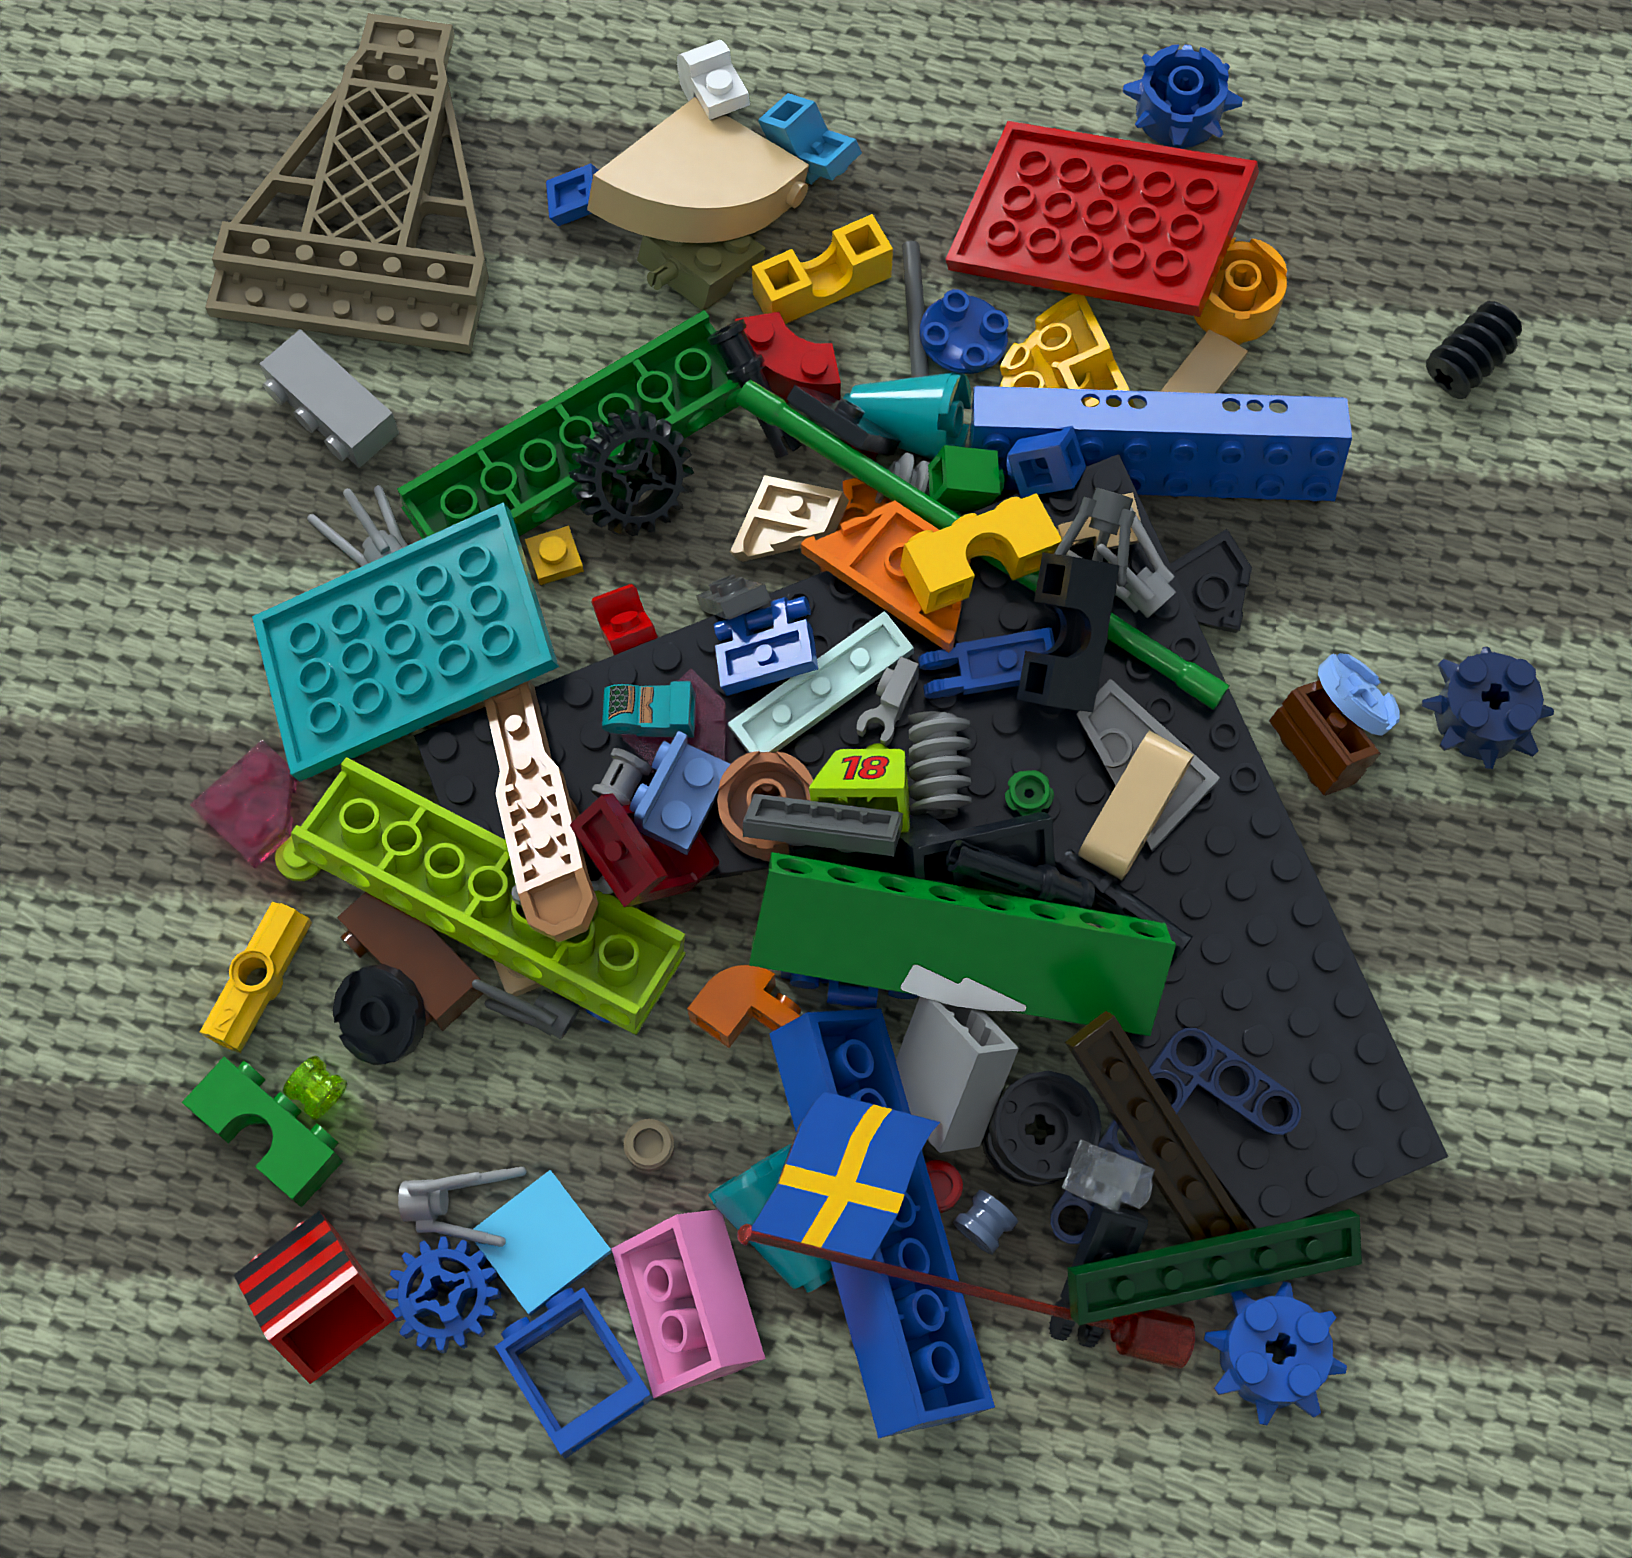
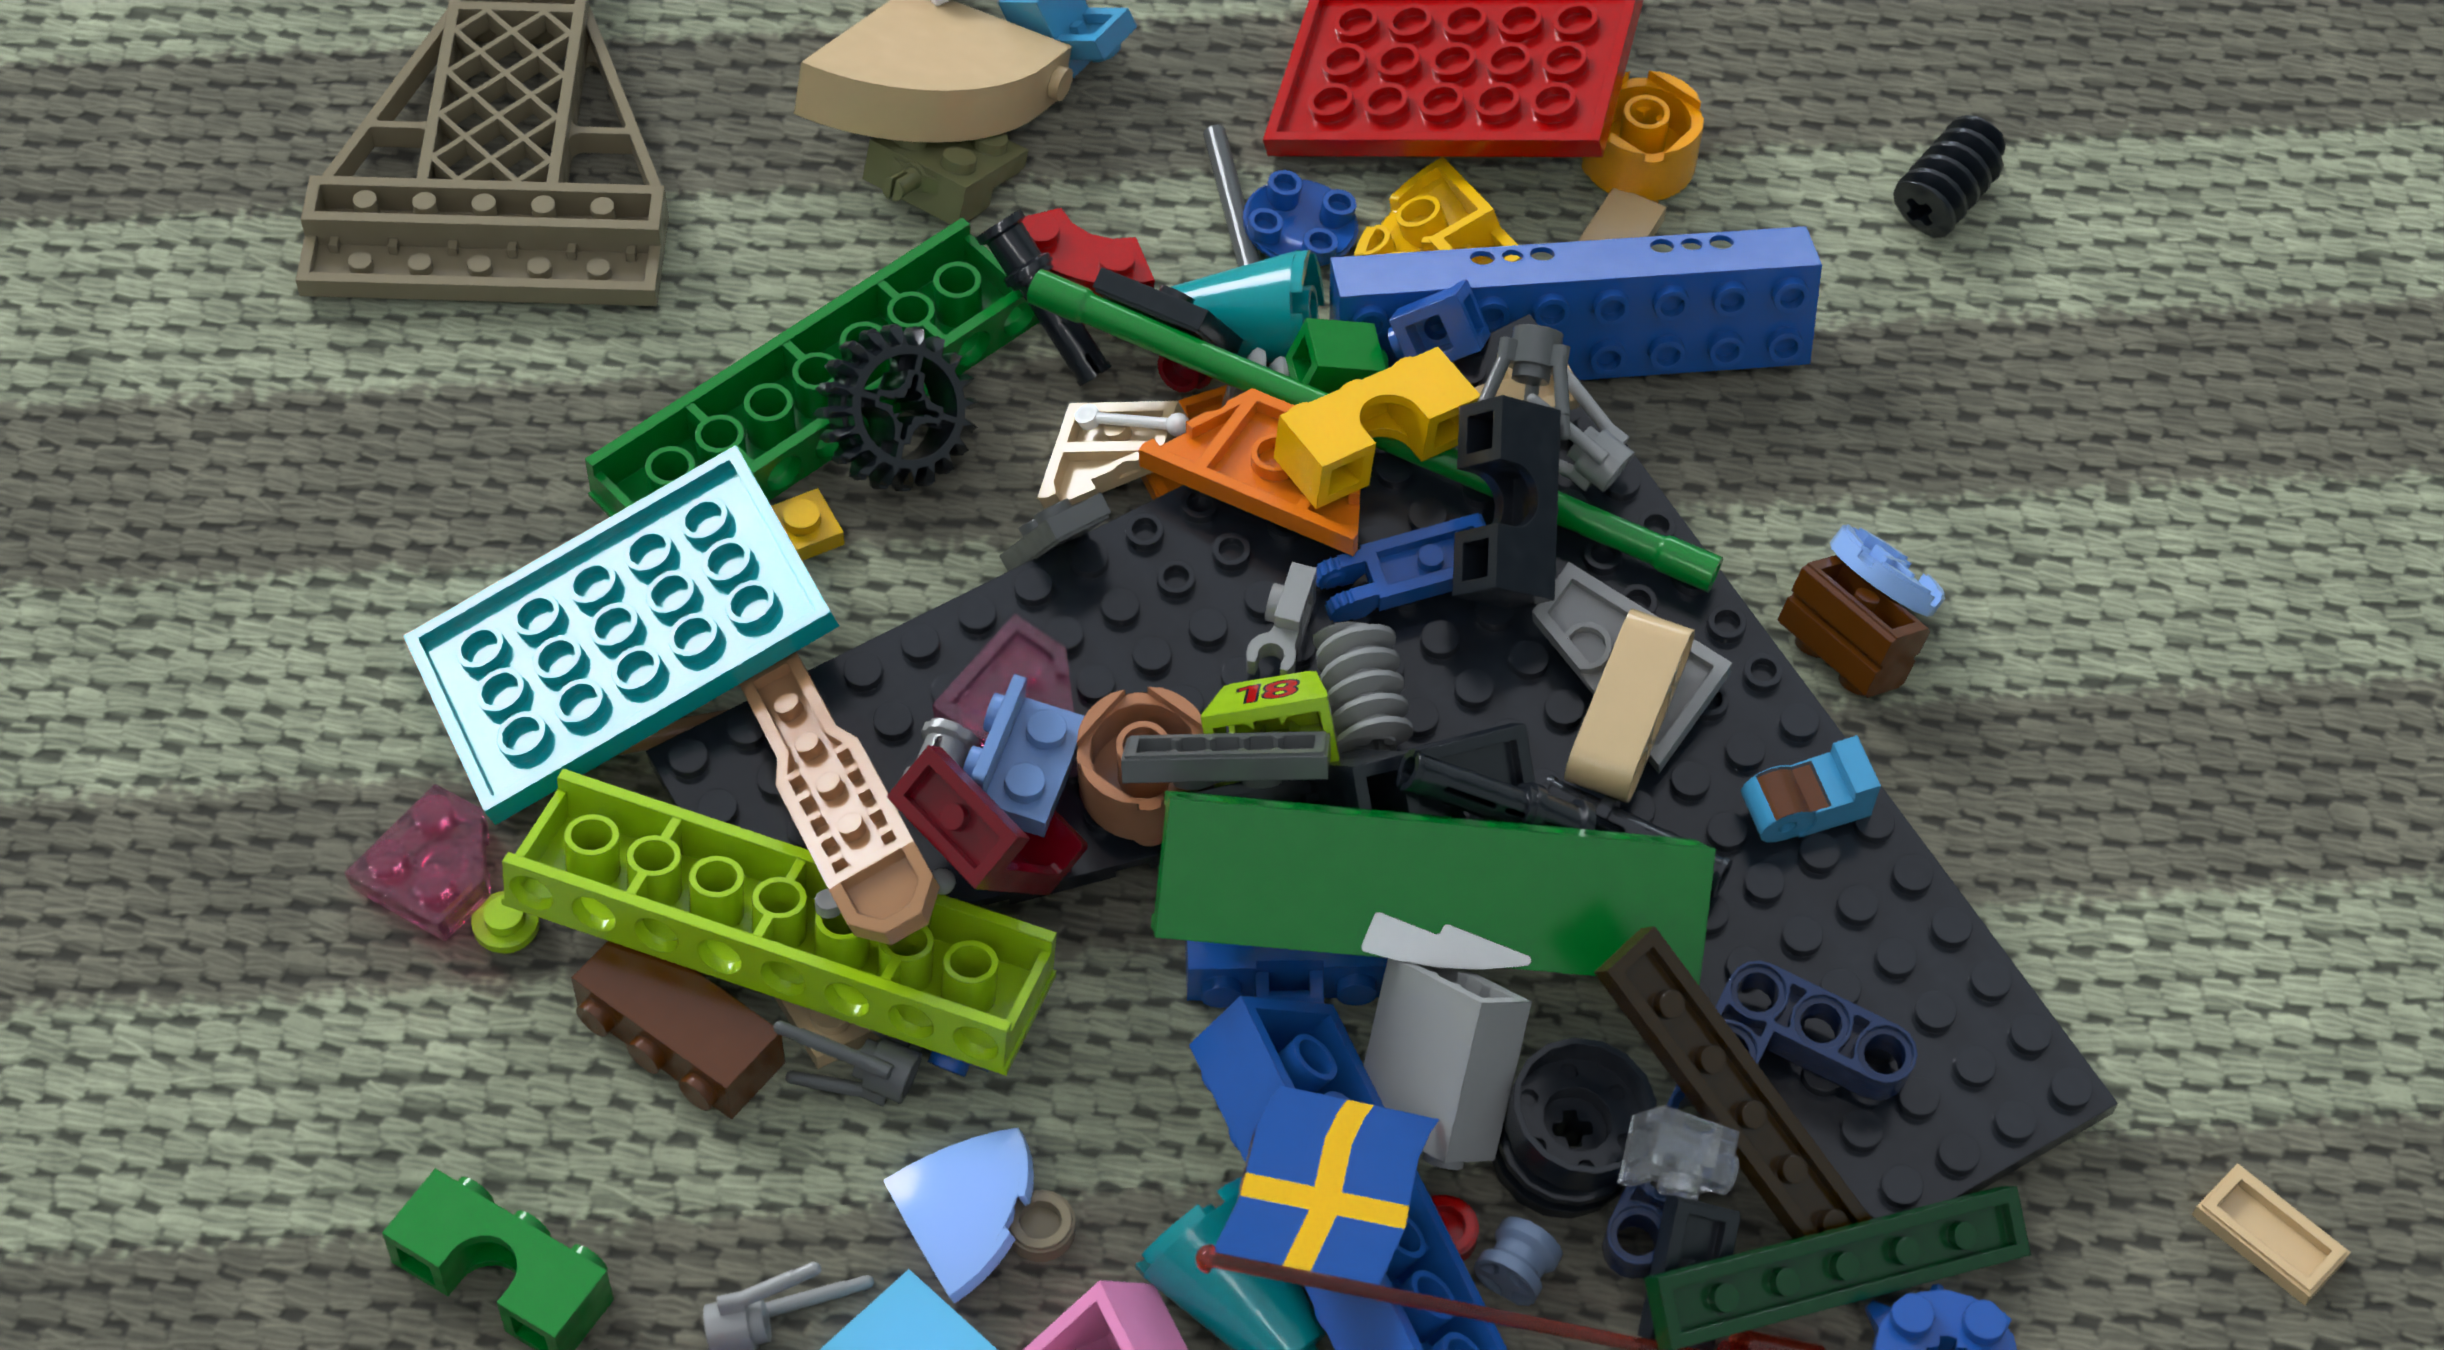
camera: 10 degrees left, 15 degrees down
(242, 1005) = (450, 1104): yellow piece -> none
(314, 1087) = (565, 1201): clear neon green wheel -> none
(328, 399) = (476, 371): light grey brick -> none
(378, 543) = (564, 527): light grey plant -> none
(379, 1014) = (644, 1096): black tile -> none
(570, 194) = (768, 113): blue bracket -> none
(595, 1124) = (964, 1204): none -> light blue brick
(623, 619) = (906, 585): red bracket -> none
(650, 709) = (966, 662): teal leg -> none
(737, 996) = (1132, 1024): orange brick -> none
(768, 655) = (1110, 575): blue plate -> none
(777, 492) = (1089, 418): none -> white hinge
(816, 694) = (1192, 616): light aqua plate -> none
(851, 263) = (1146, 151): yellow arch -> none
(1032, 781) = (1484, 701): green plate -> none
(1215, 581) = (1683, 463): black plate -> none
(1262, 888) = (1813, 793): none -> dark azure leg
(1464, 703) = (2055, 570): dark blue brick -> none
(1543, 1268) = (2271, 1234): none -> tan tile

